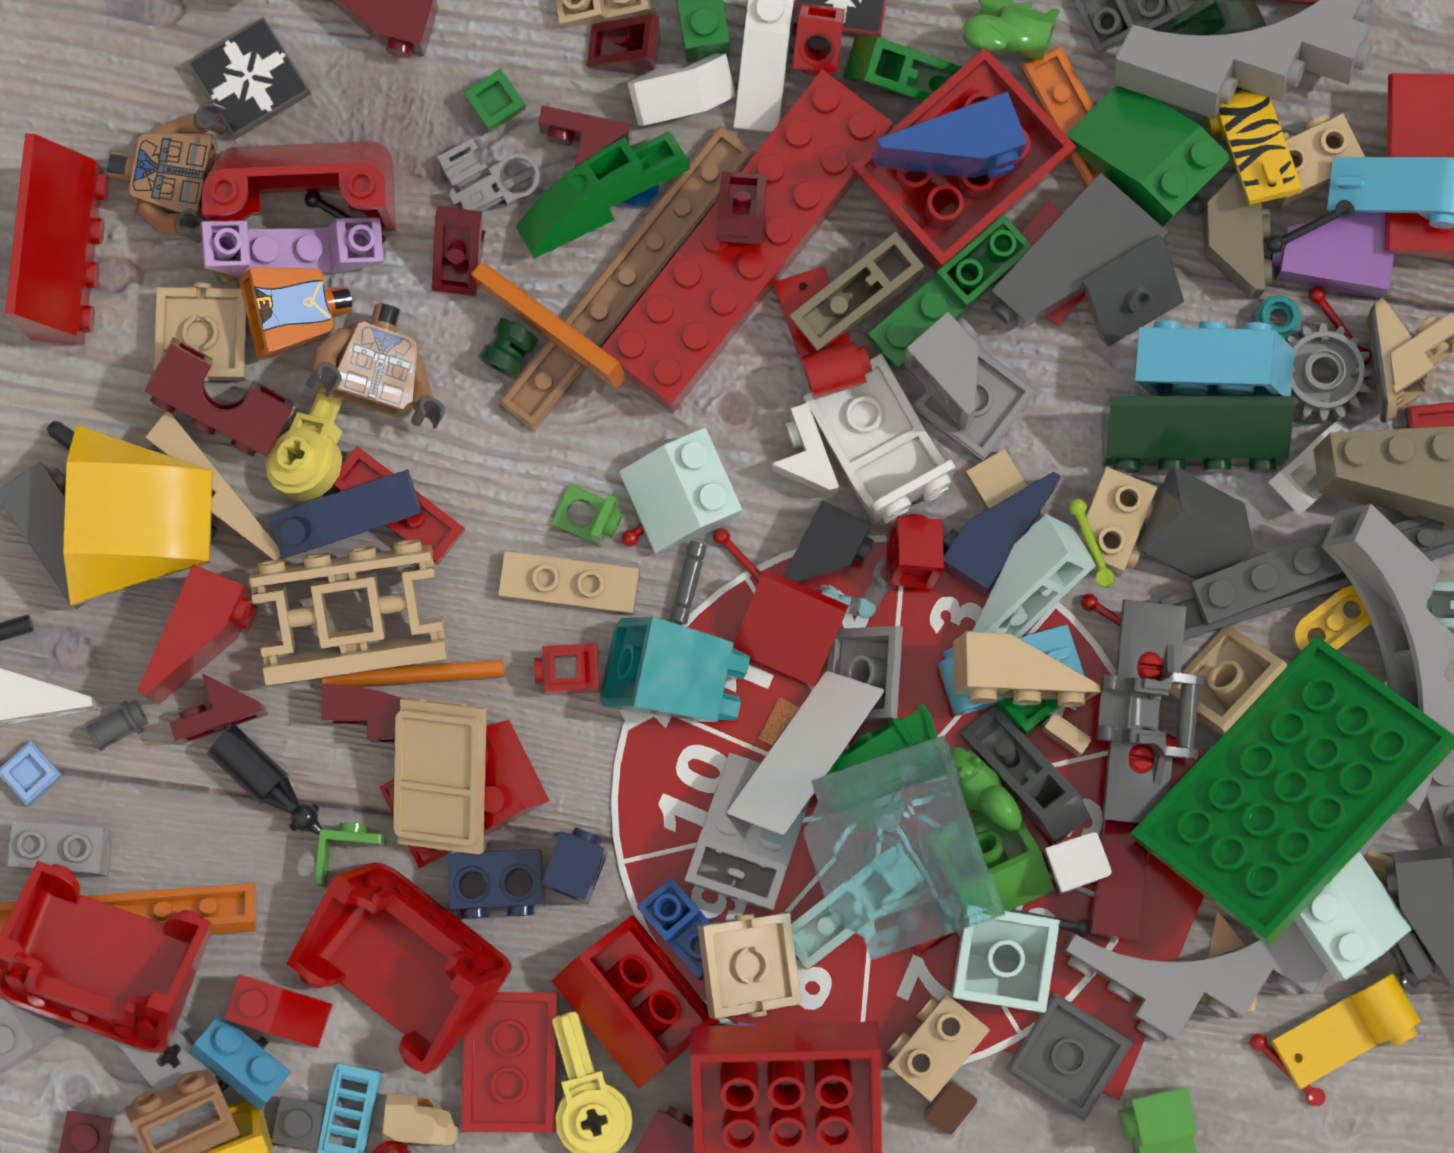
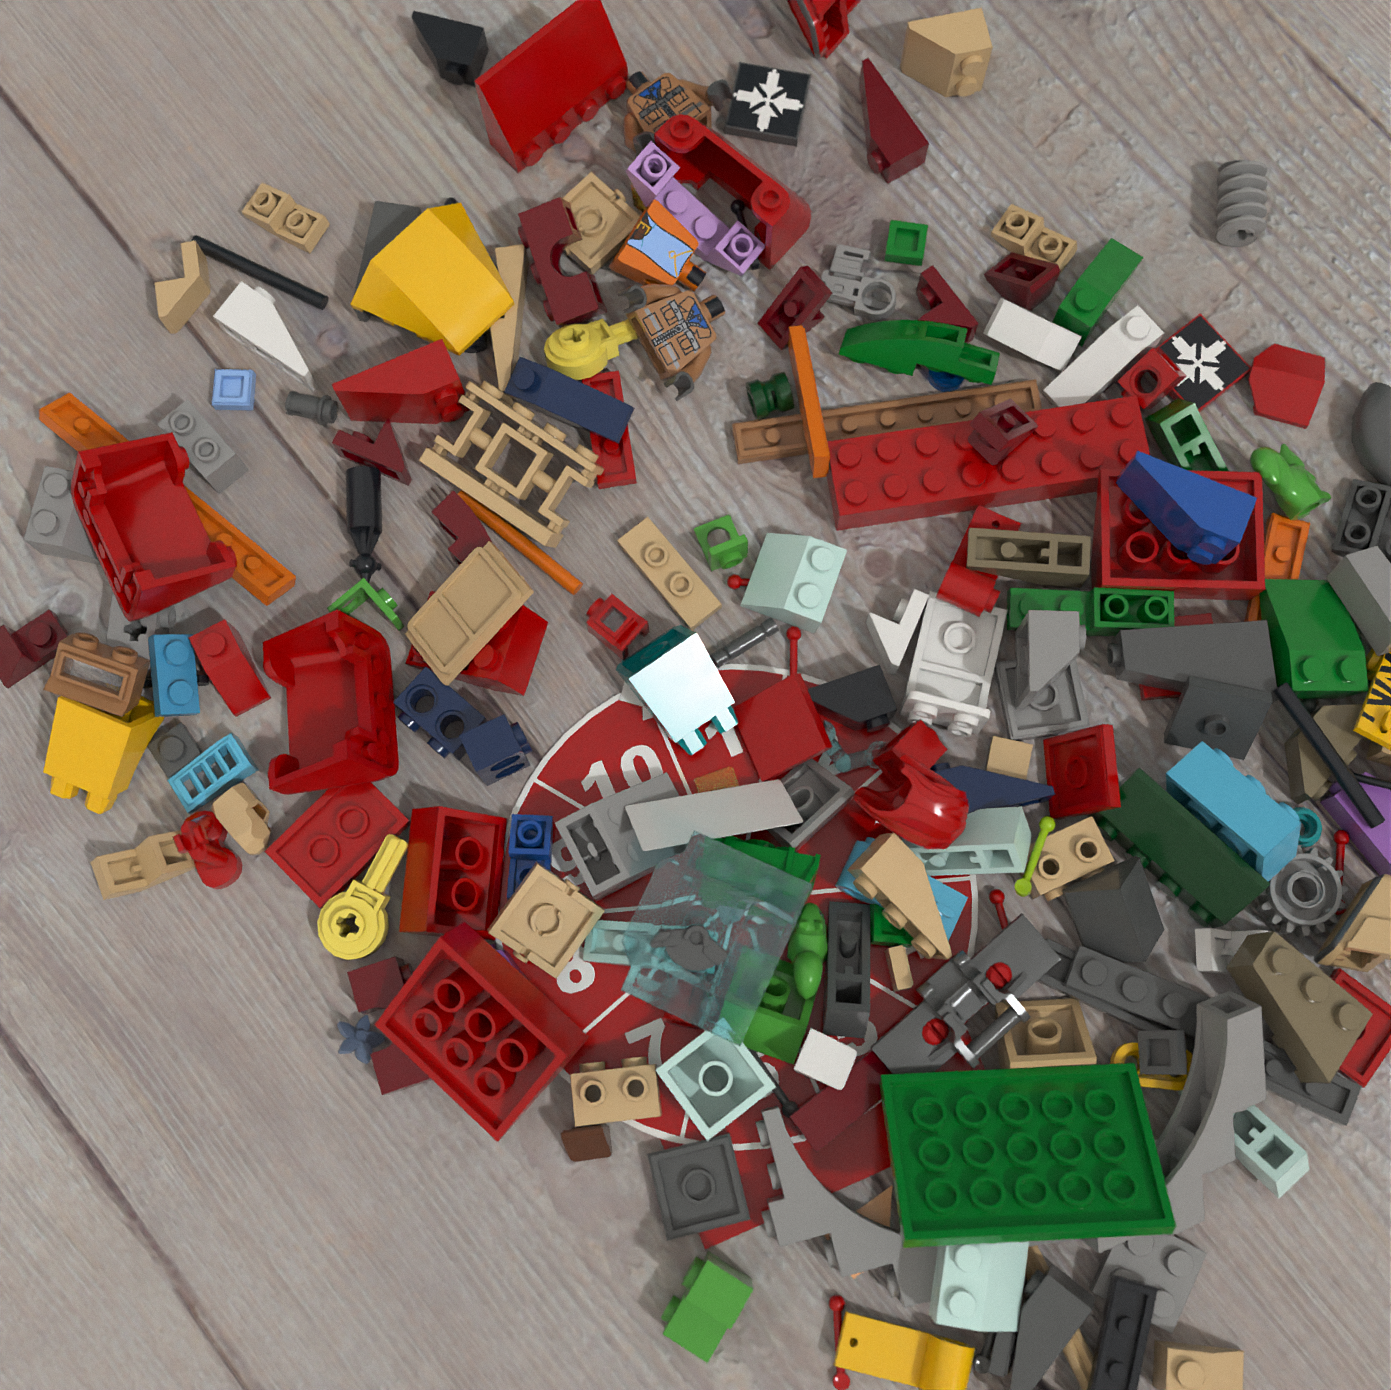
camera: 45 degrees right, 5 degrees down
(894, 874) = (690, 947): none -> dark grey piece
(967, 593) = (921, 810): none -> red hair
(1066, 437) = (1082, 772): none -> red tile
(1247, 242) = (1329, 755): none -> black bar
(1330, 607) = (1162, 1052): none -> dark grey plate

